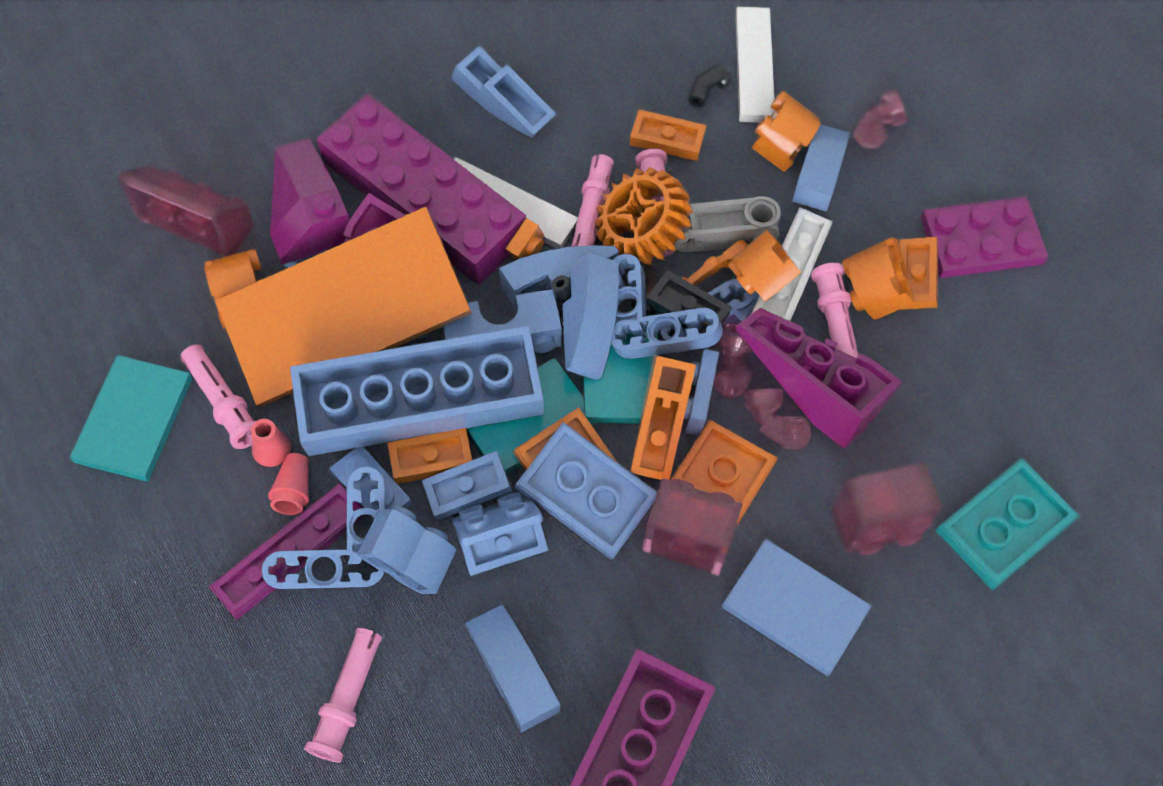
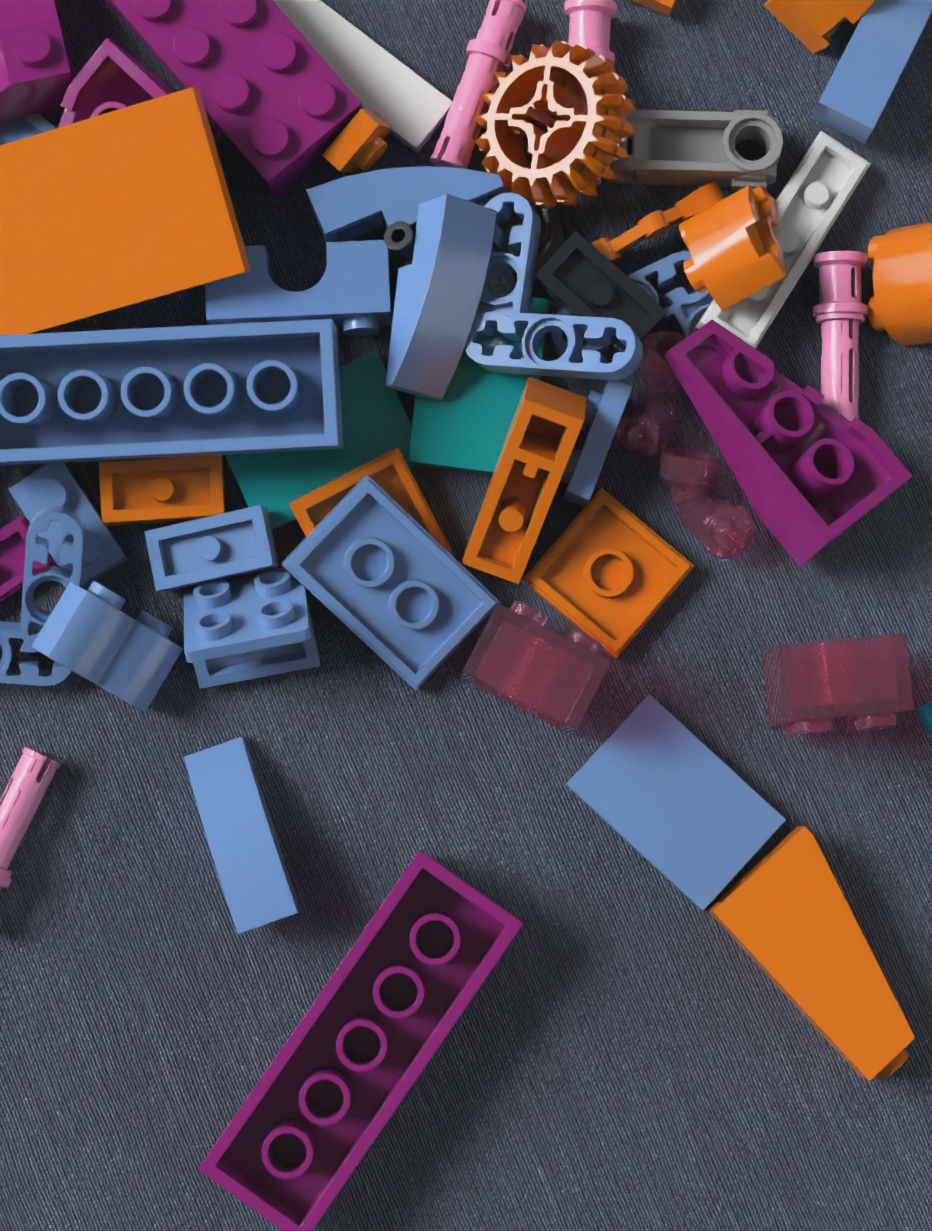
camera: 10 degrees right, 20 degrees up
(914, 692) = (811, 947): none -> orange slope

